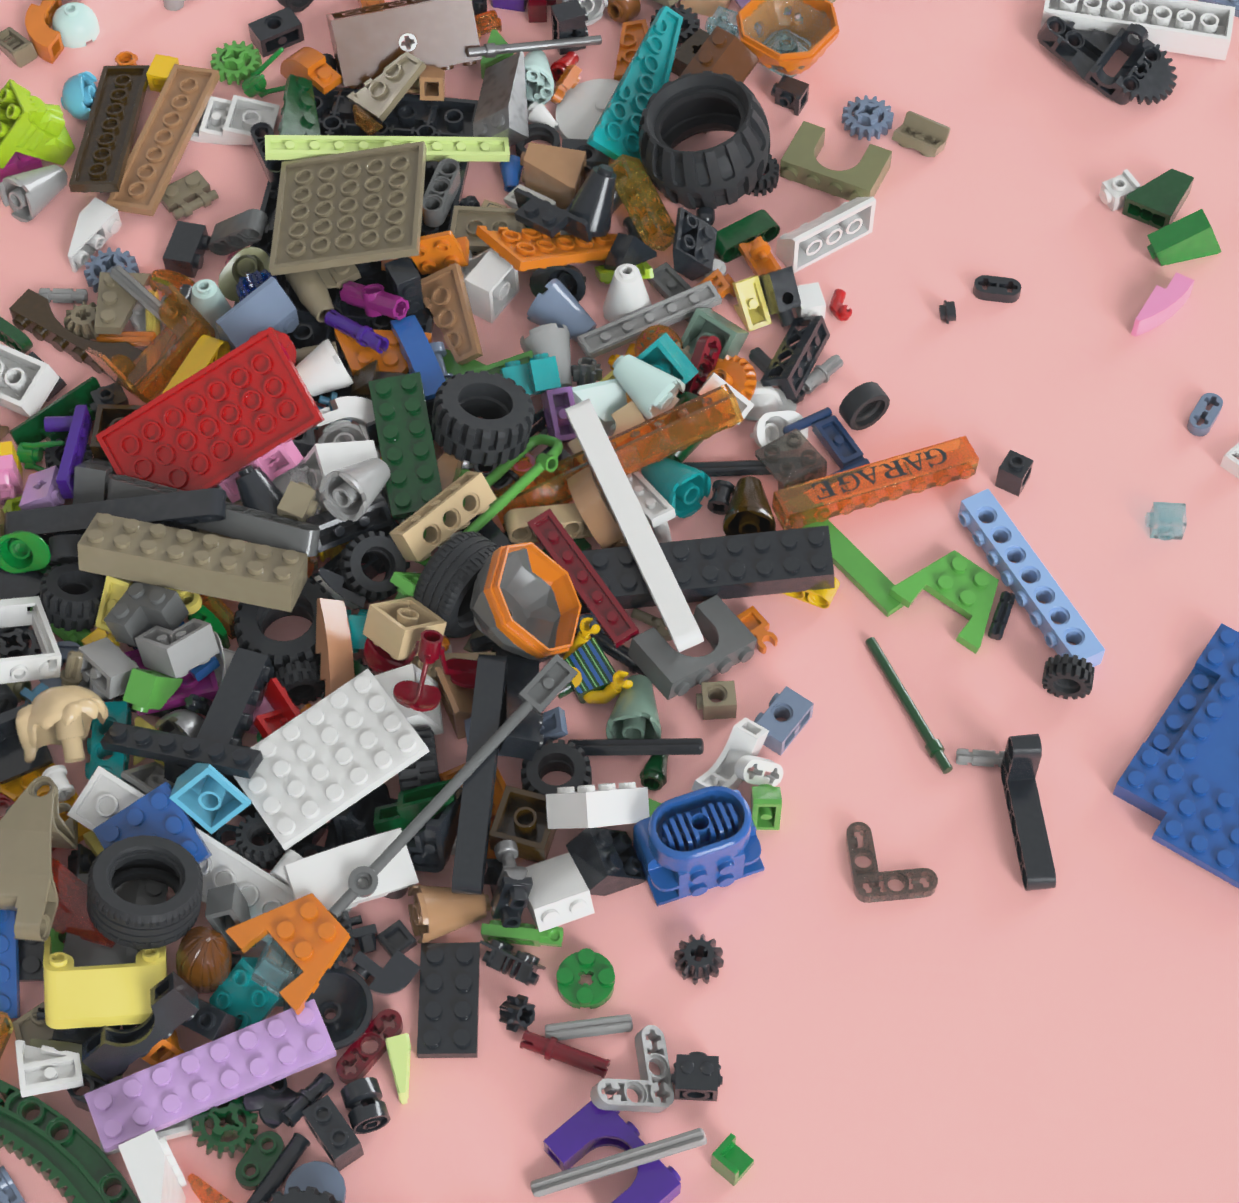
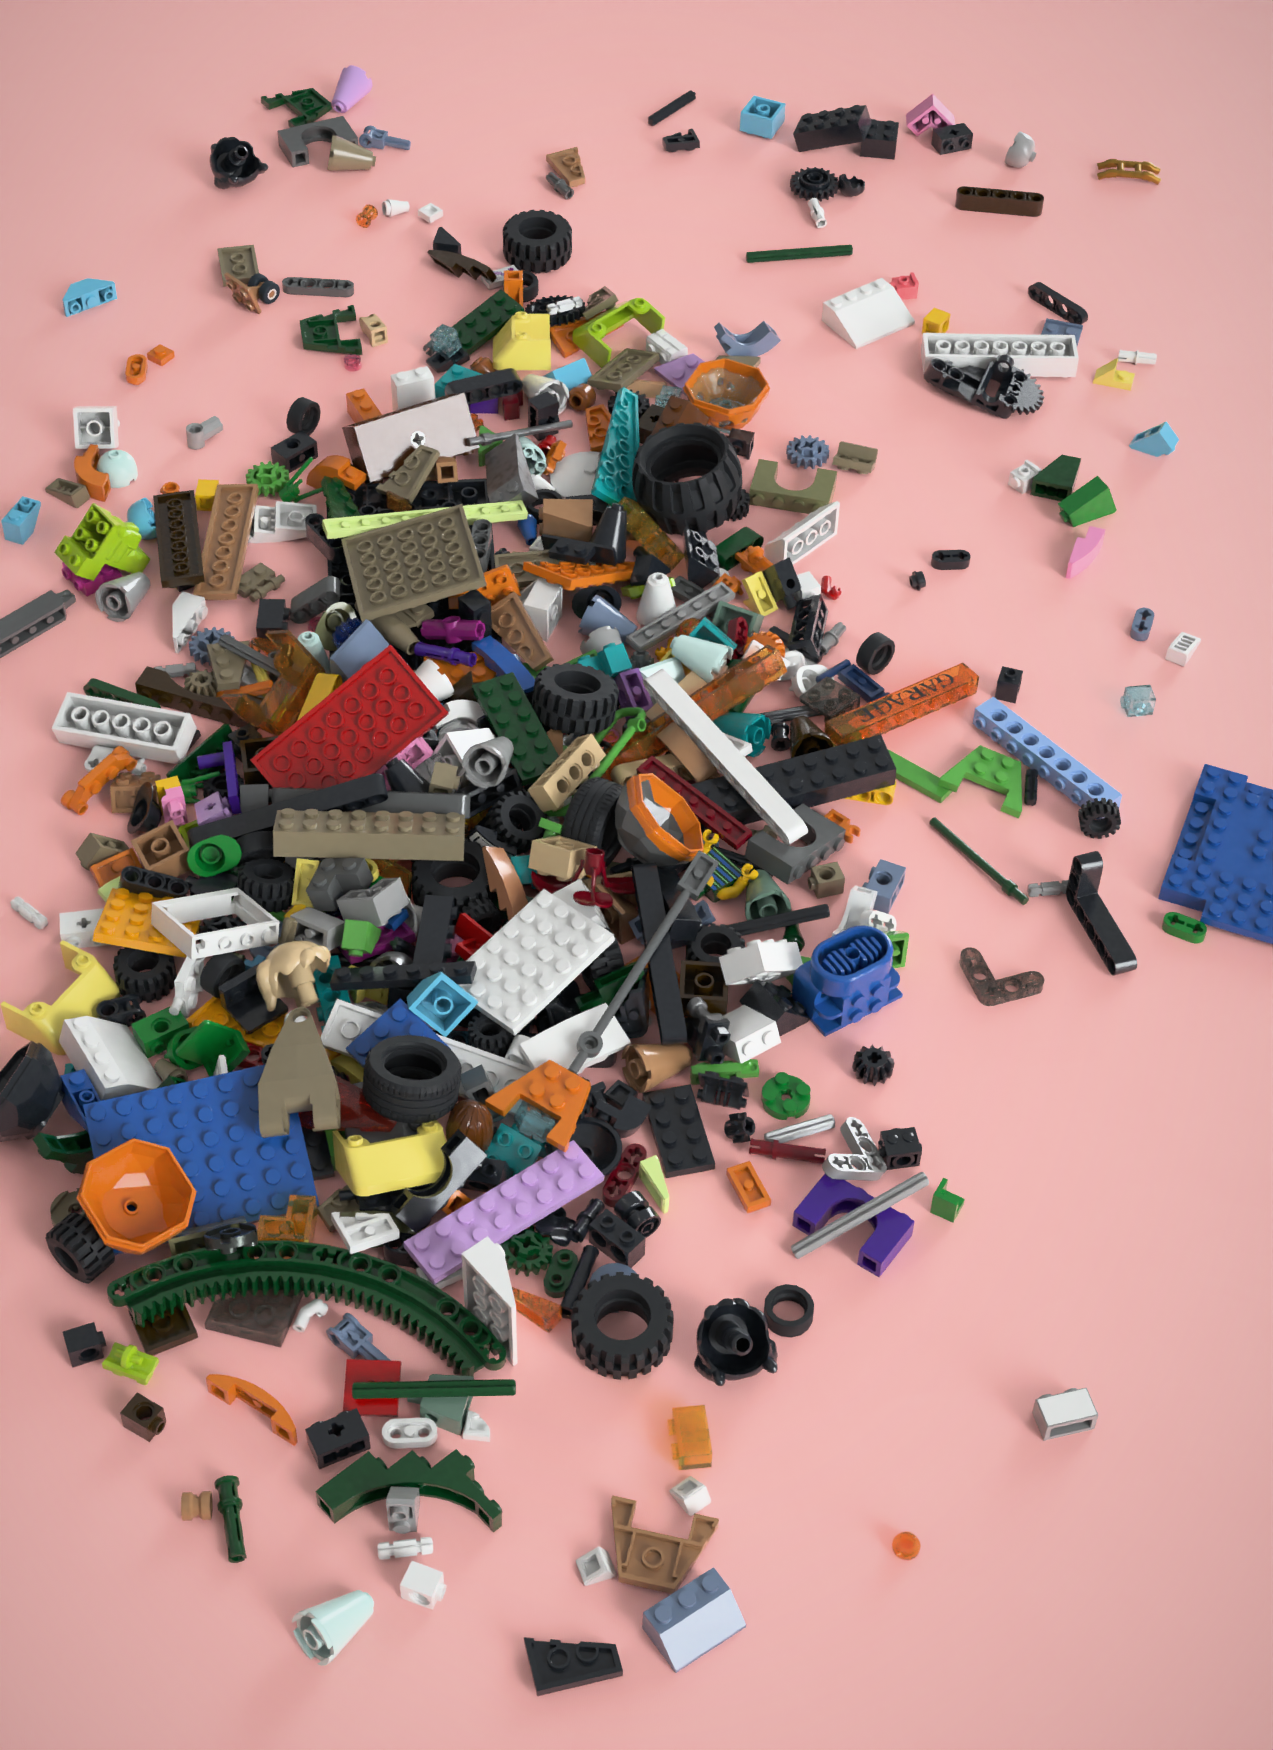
camera: 15 degrees left, 10 degrees down
(505, 1092) = (748, 1187): none -> orange plate
(1131, 841) = (1184, 927): none -> green beam

